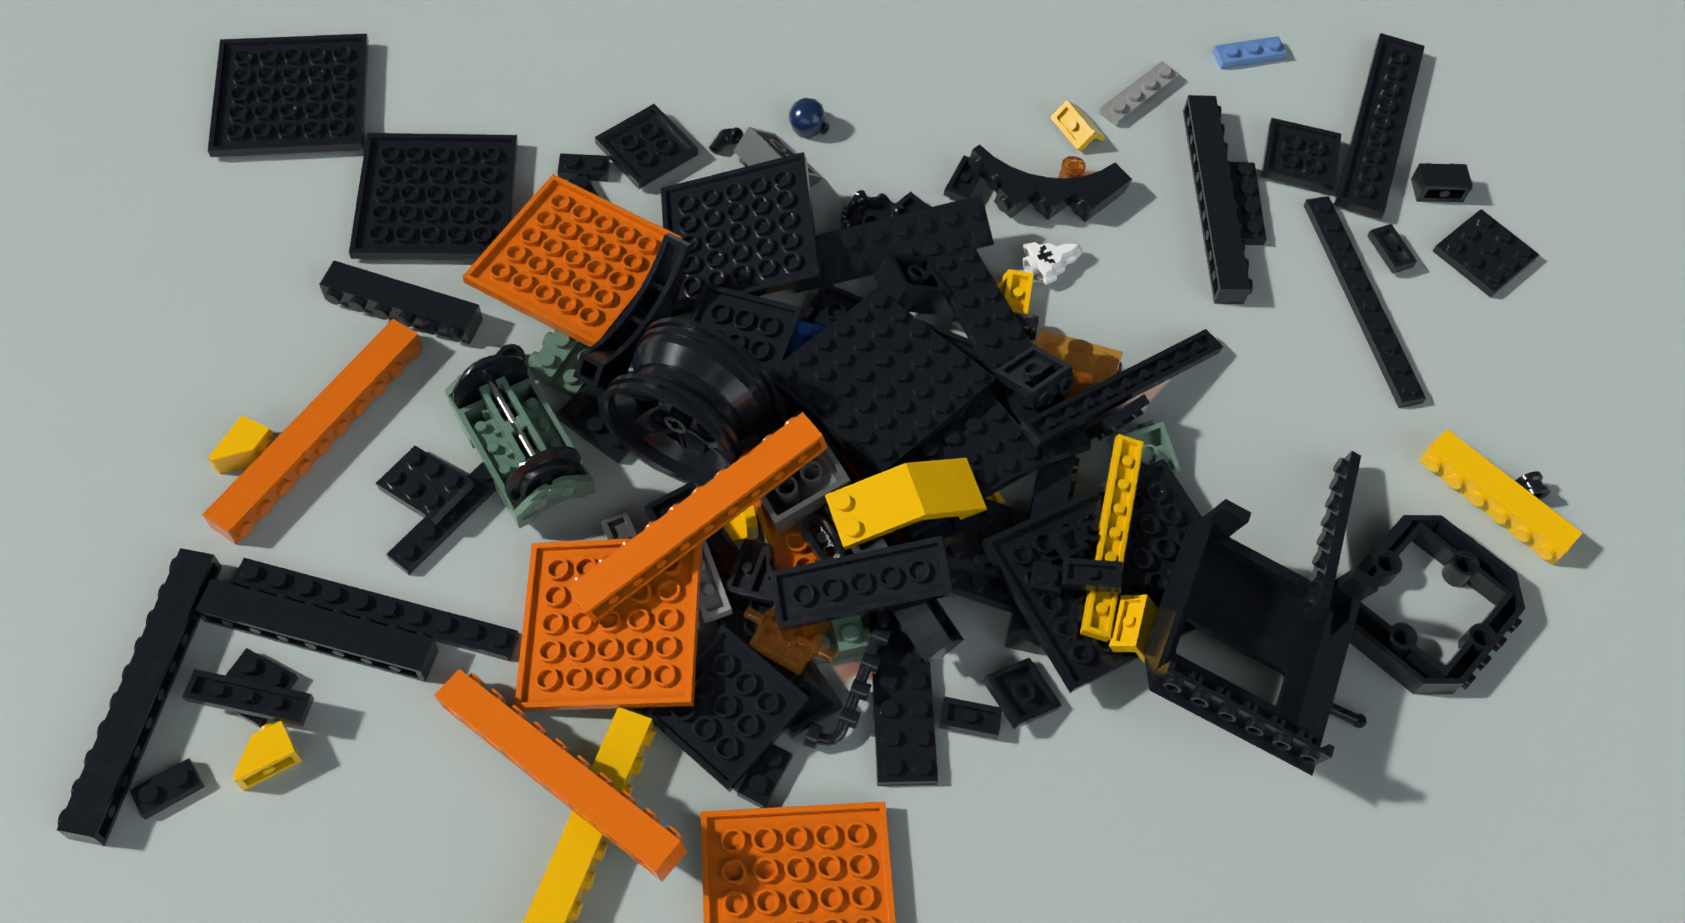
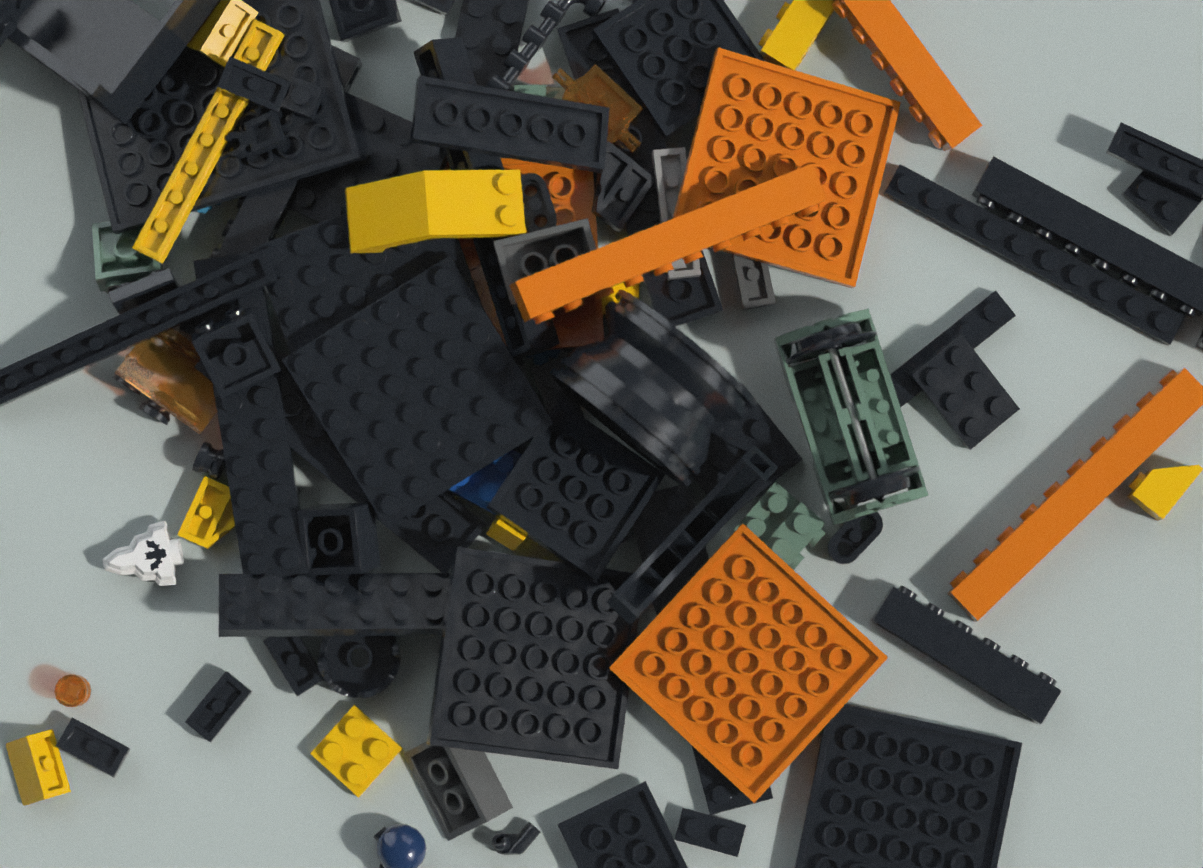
camera: 160 degrees left, 25 degrees up
(266, 755) = (1156, 108): yellow slope -> none
(856, 171) = (356, 751): none -> yellow plate
(1044, 141) = (93, 747): none -> black plate
(1048, 195) = (69, 643): black arch -> none

